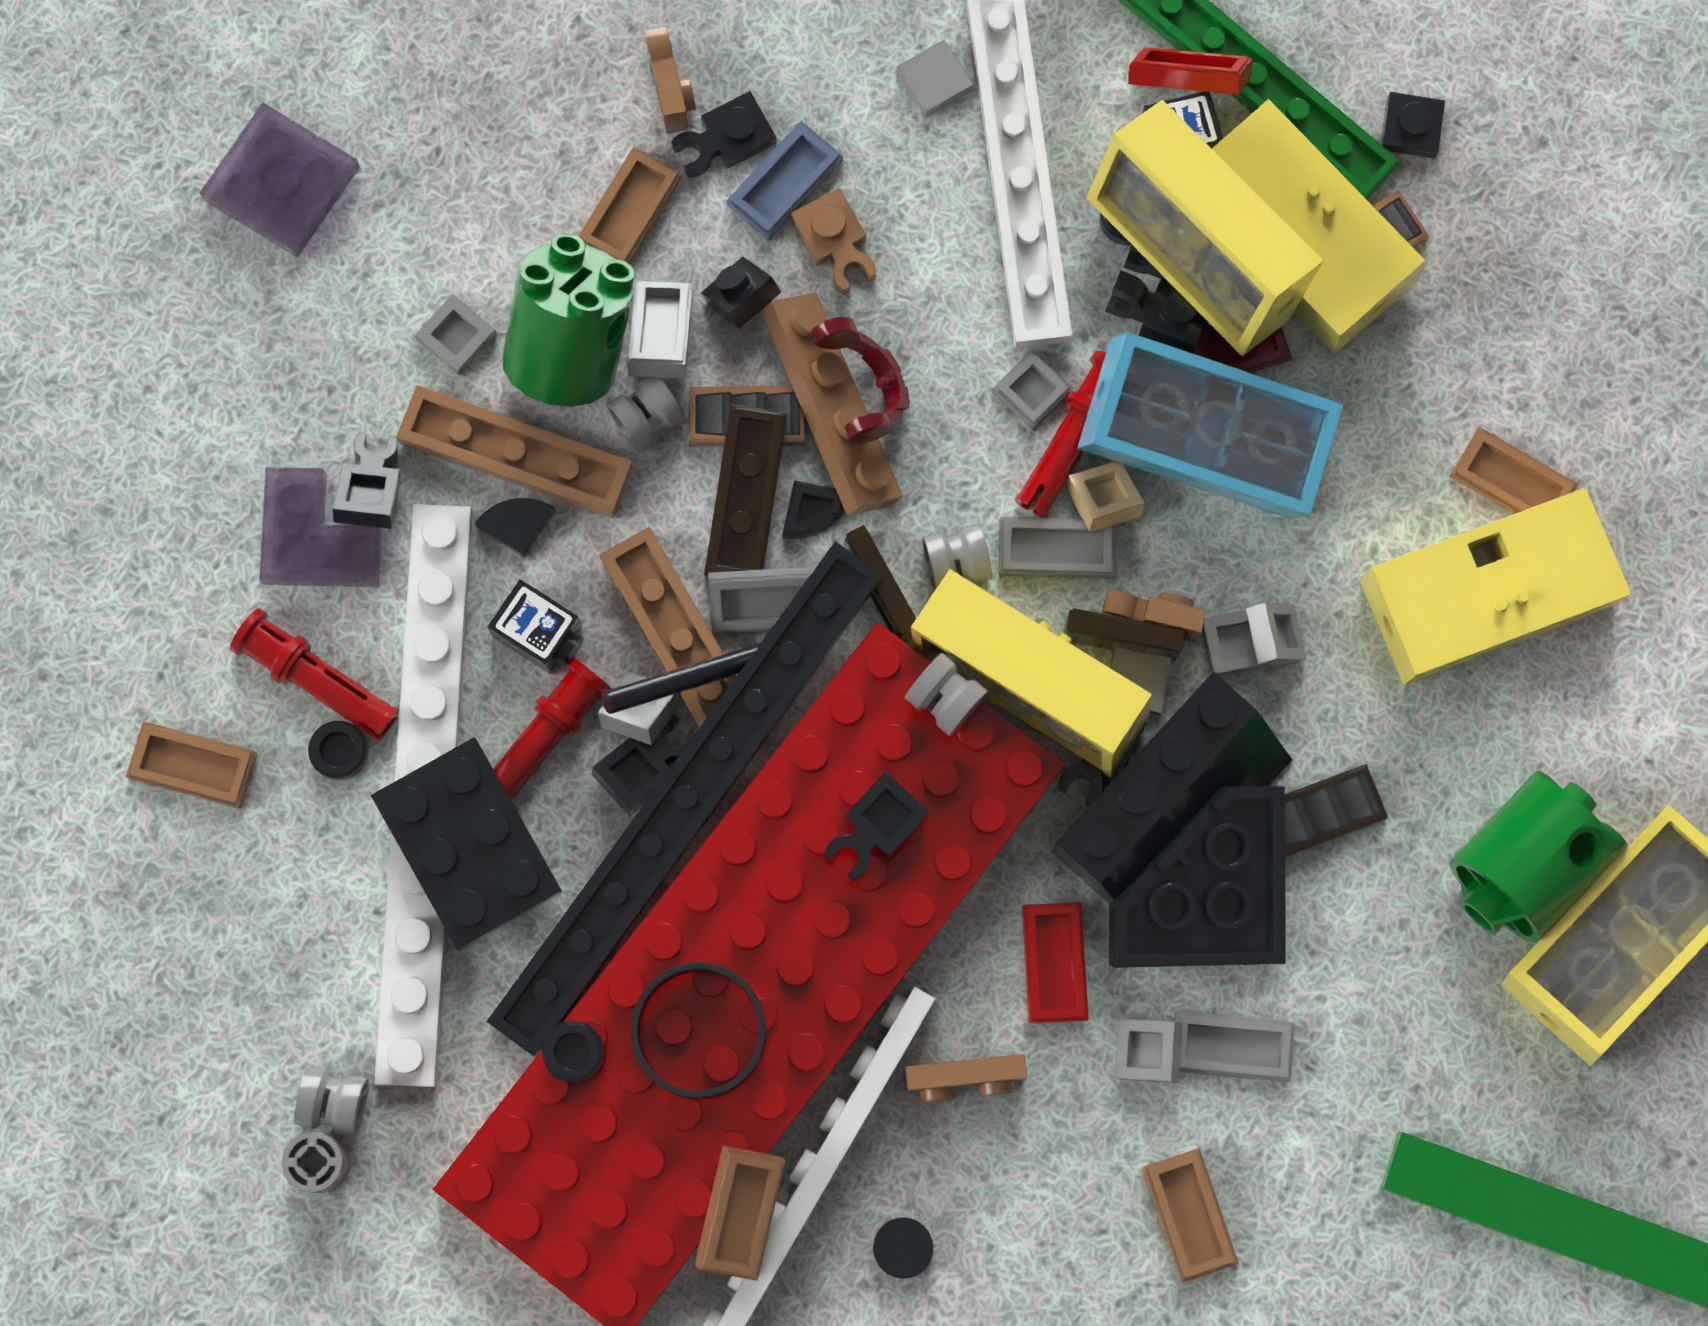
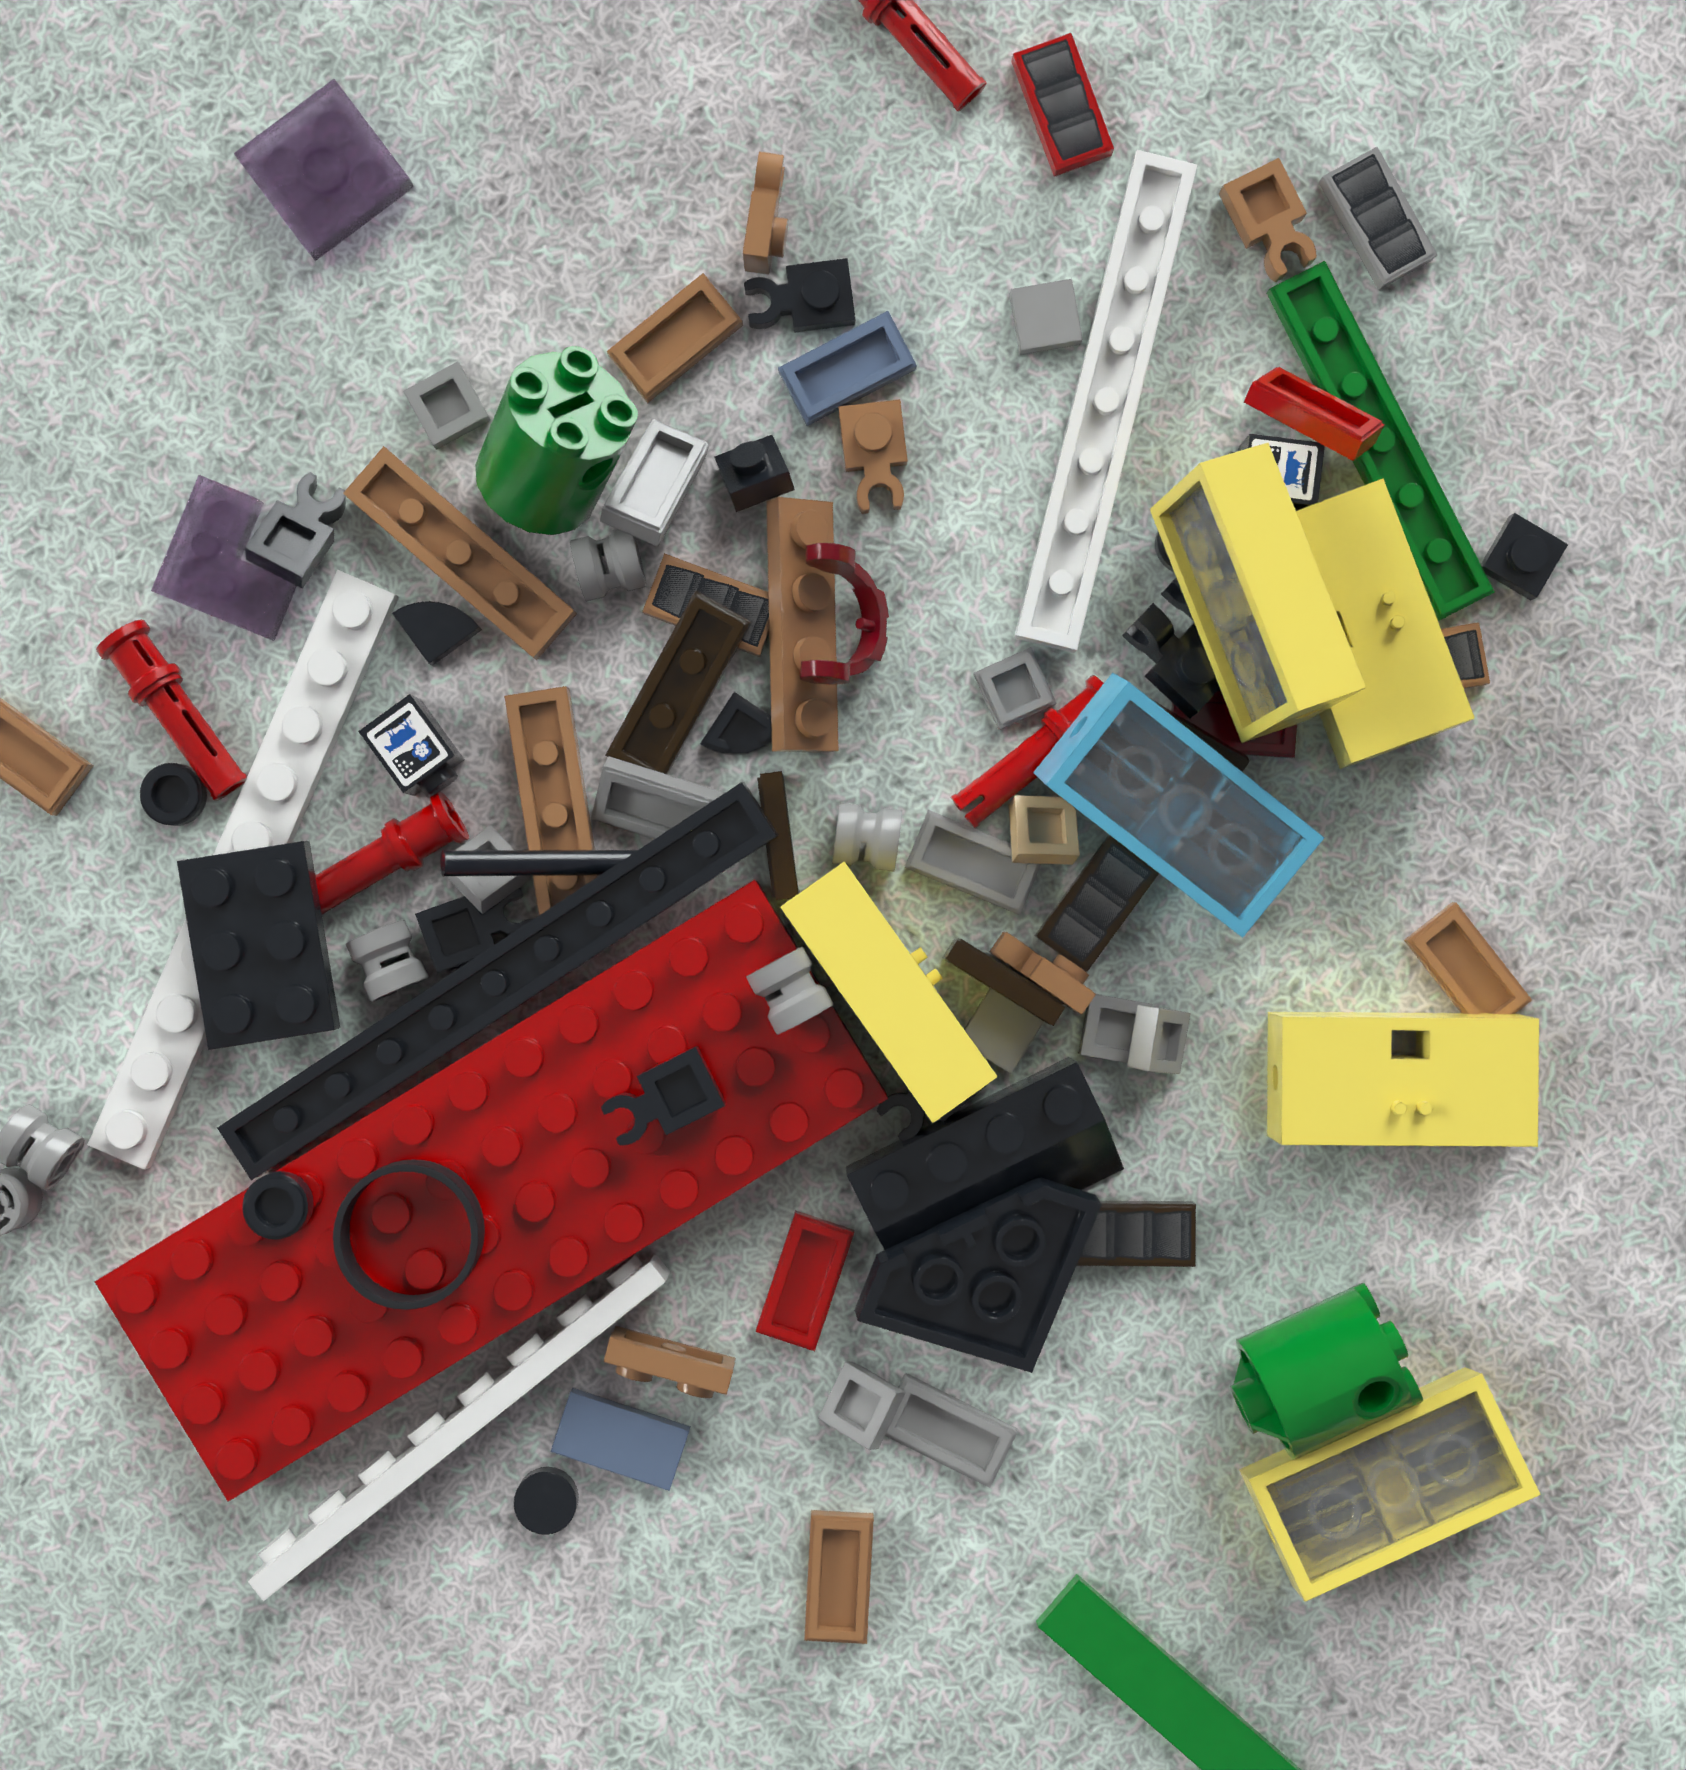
camera: 25 degrees right, 10 degrees up
(581, 818) = (381, 947): none -> light grey wheel
(740, 1213) = (385, 1425): medium nougat tile -> none
(948, 1166) = (620, 1439): none -> sand blue tile
(1176, 540) = (1097, 903): none -> tile

